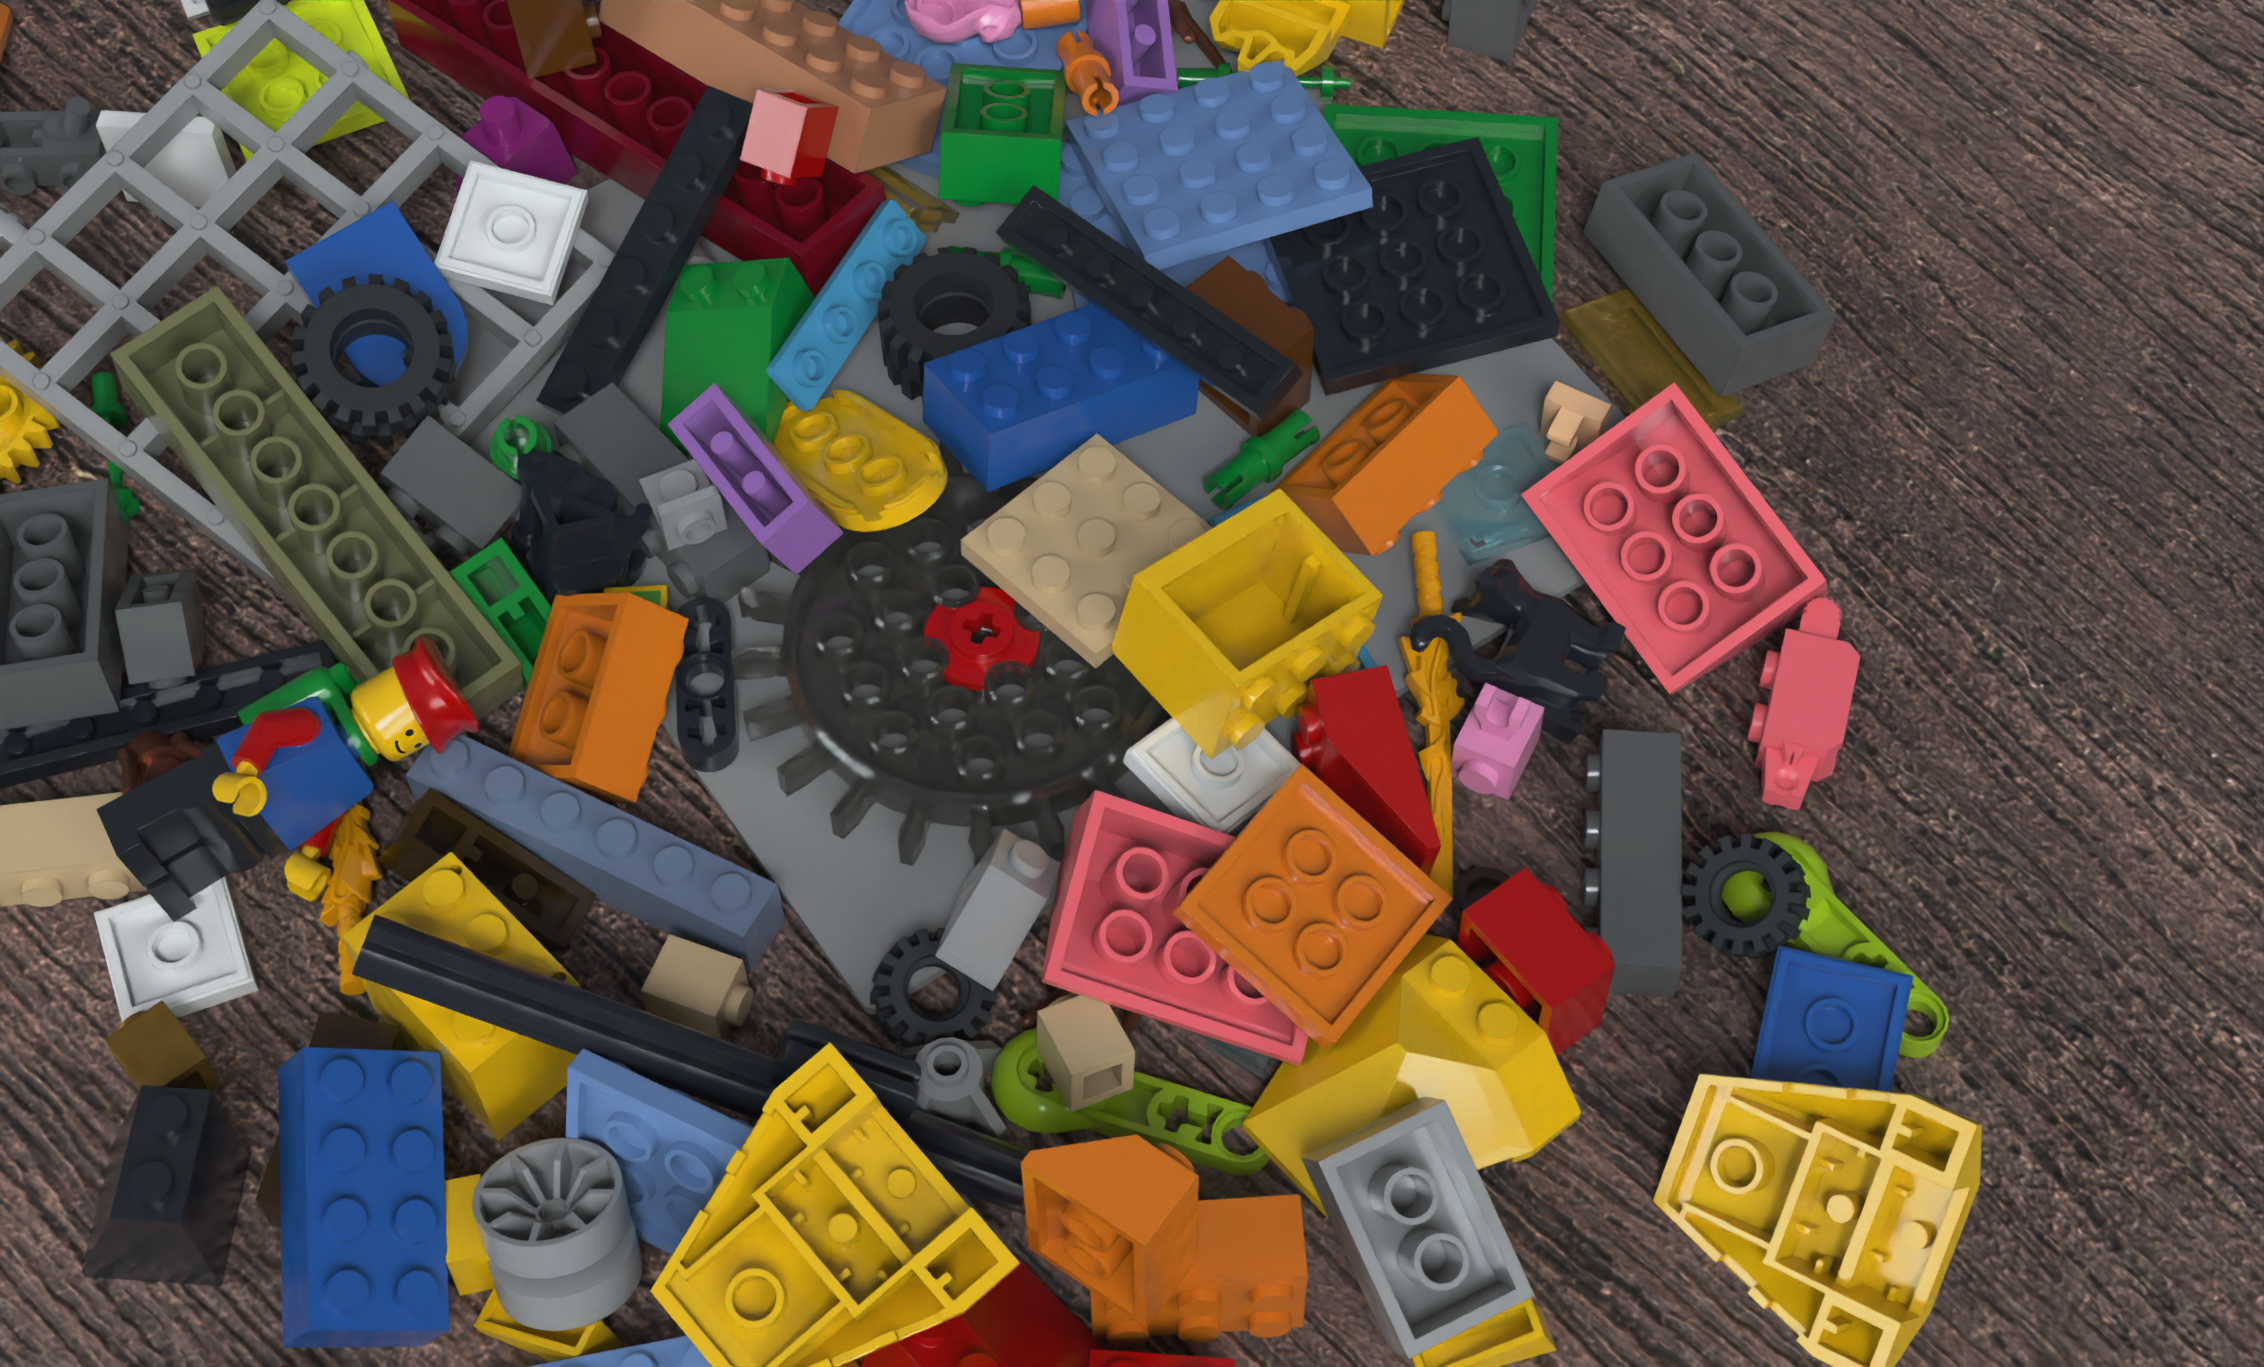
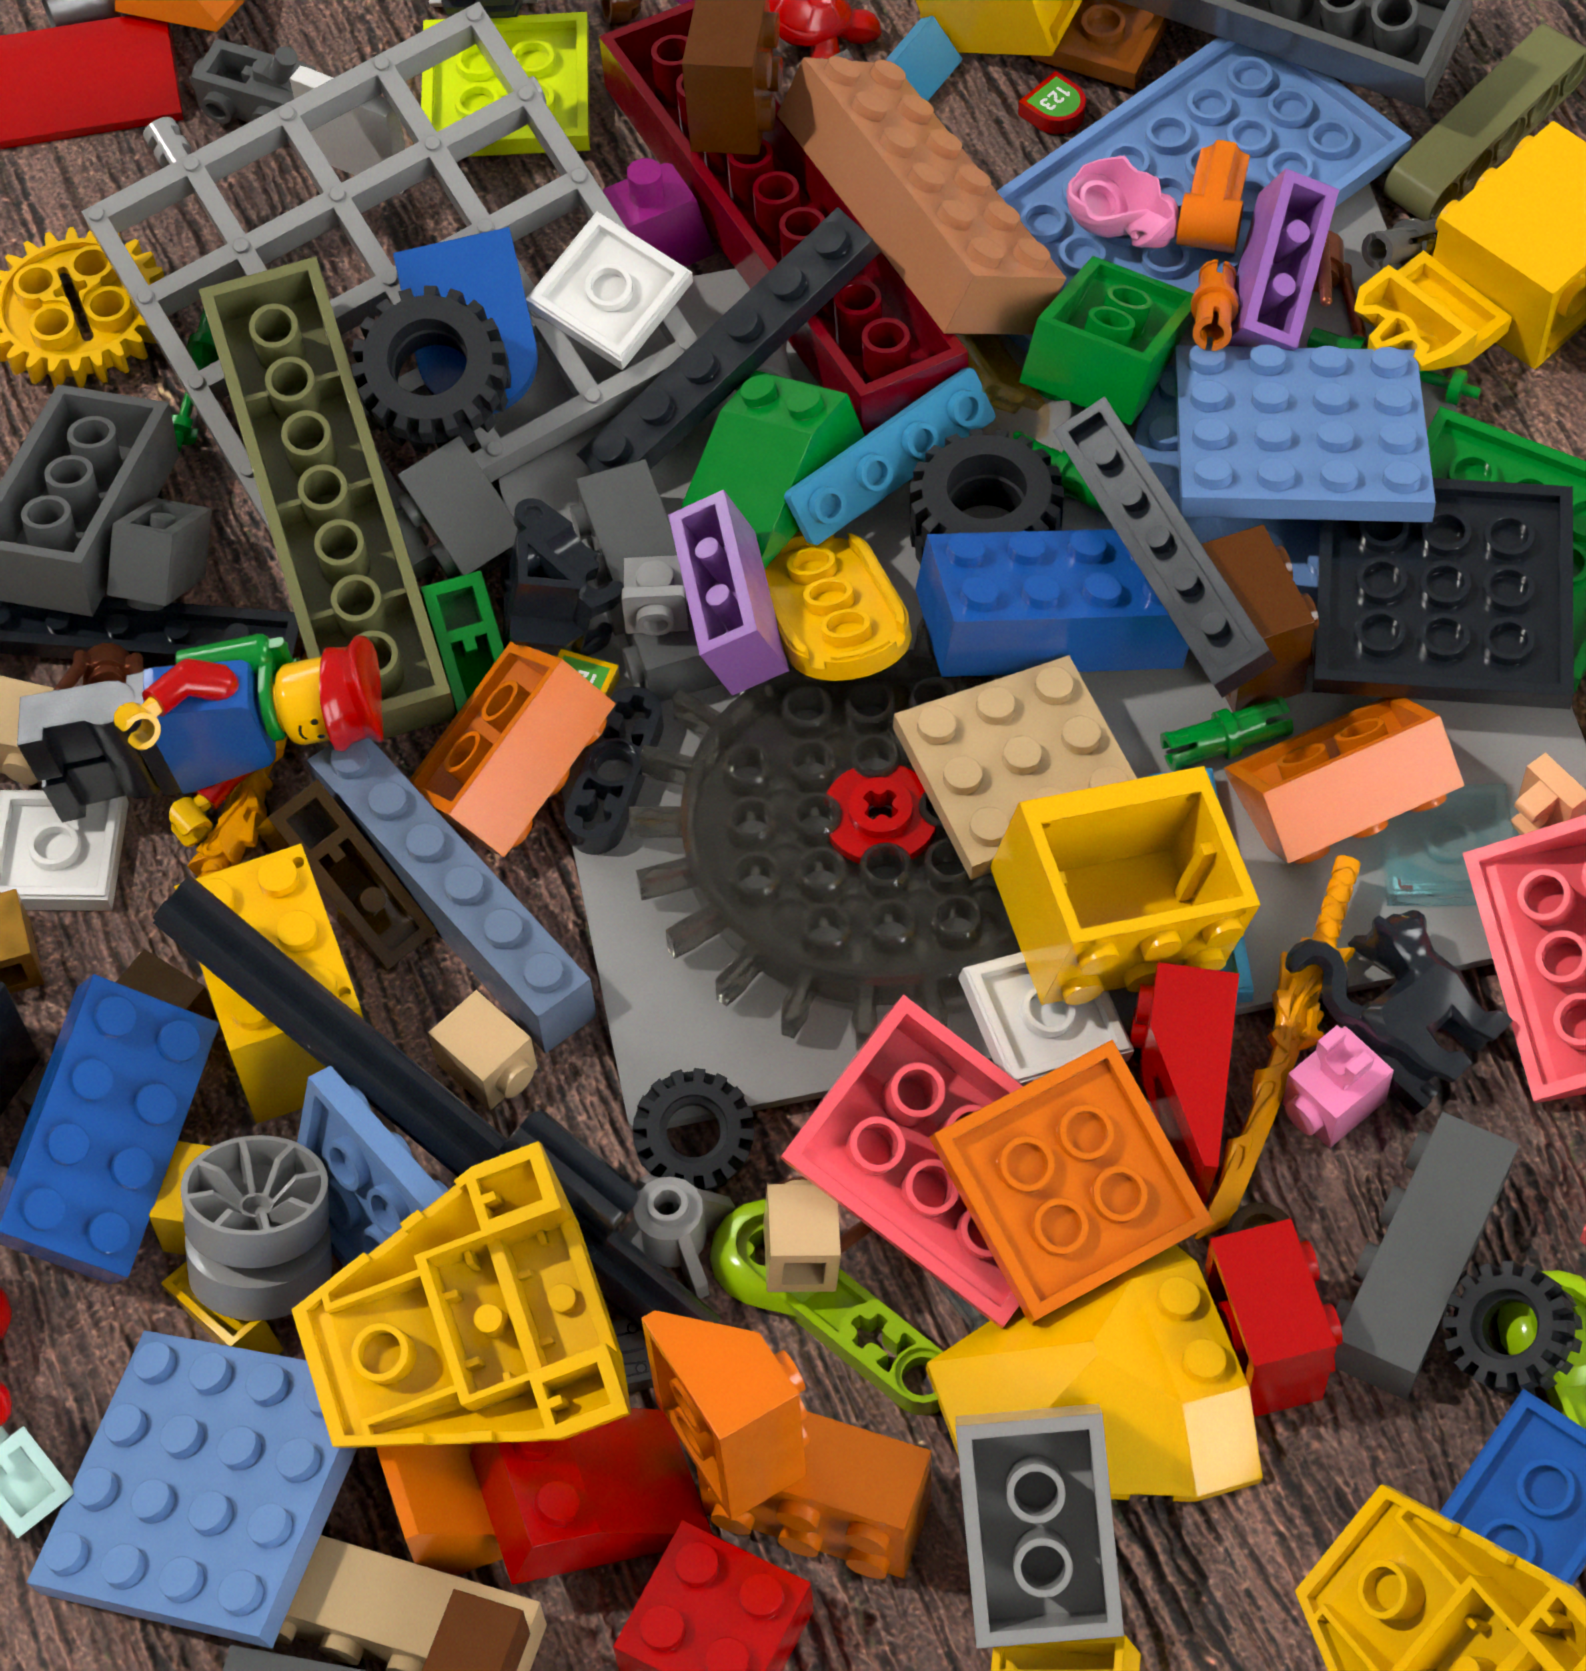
camera: 25 degrees right, 0 degrees up
(513, 440) = (537, 483): green arm -> none
(788, 135) = (892, 276): brick -> none
(997, 908) = (776, 1075): light grey slope -> none

